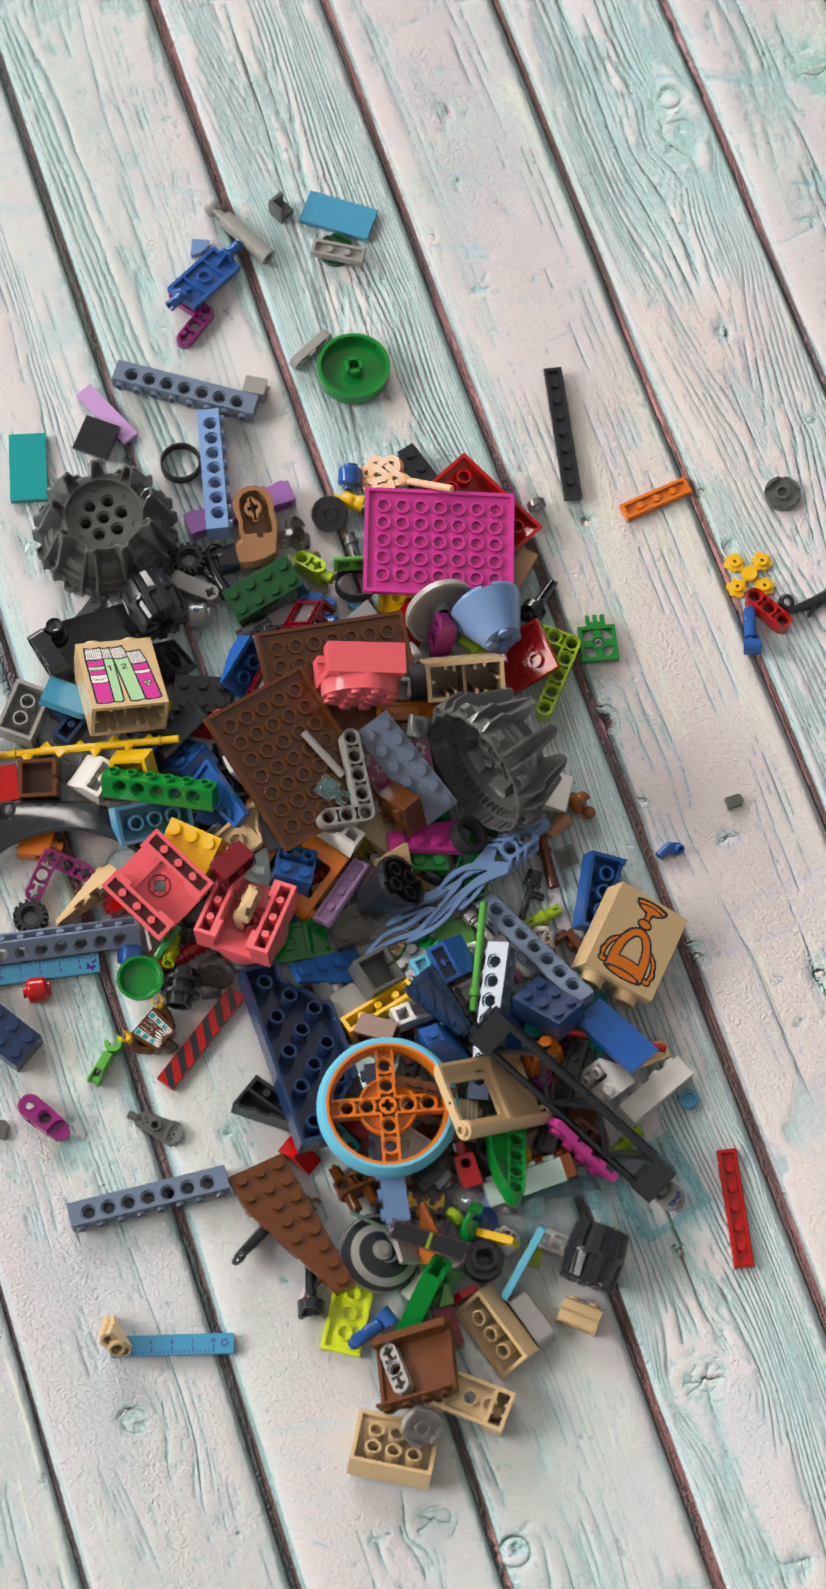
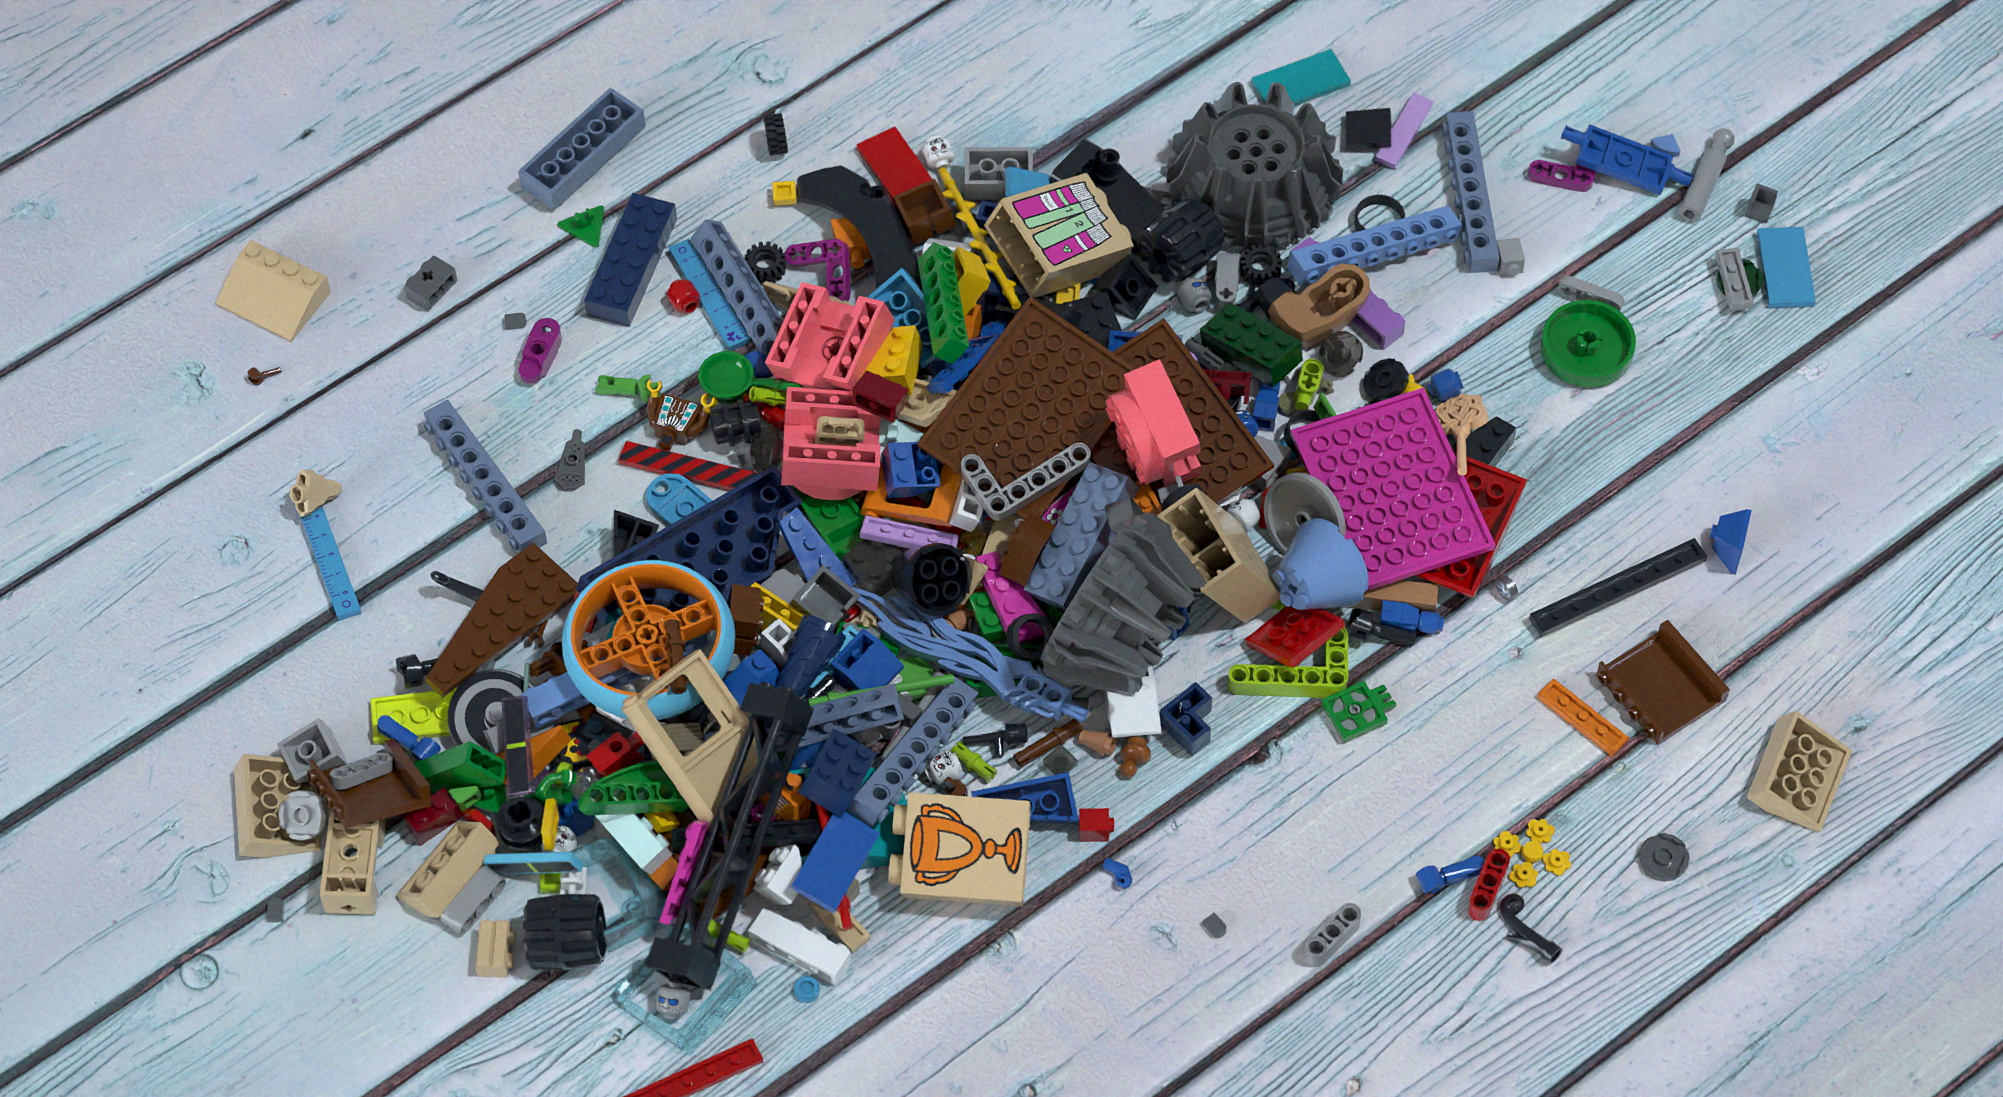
camera: 75 degrees right, 10 degrees down
(232, 1054) = (677, 501): none -> dark azure tile
(323, 754) = (1051, 436): light grey bar -> none
(328, 789) = (1012, 460): clear light blue plate -> none
(358, 1406) = (311, 742): none -> light grey slope
(441, 635) = (1276, 532): magenta piece -> none
(483, 1475) = (275, 910): none -> dark grey piece
(537, 578) = (1408, 618): none -> blue piece
(557, 344) = (1730, 537): none -> blue slope
(578, 756) = (1184, 718): none -> dark blue brick
(629, 850) = (1095, 824): none -> red brick
(649, 437) = (1663, 683): none -> reddish brown panel
(750, 383) = (1799, 772): none -> tan slope
(771, 717) = (1335, 924): none -> light grey beam

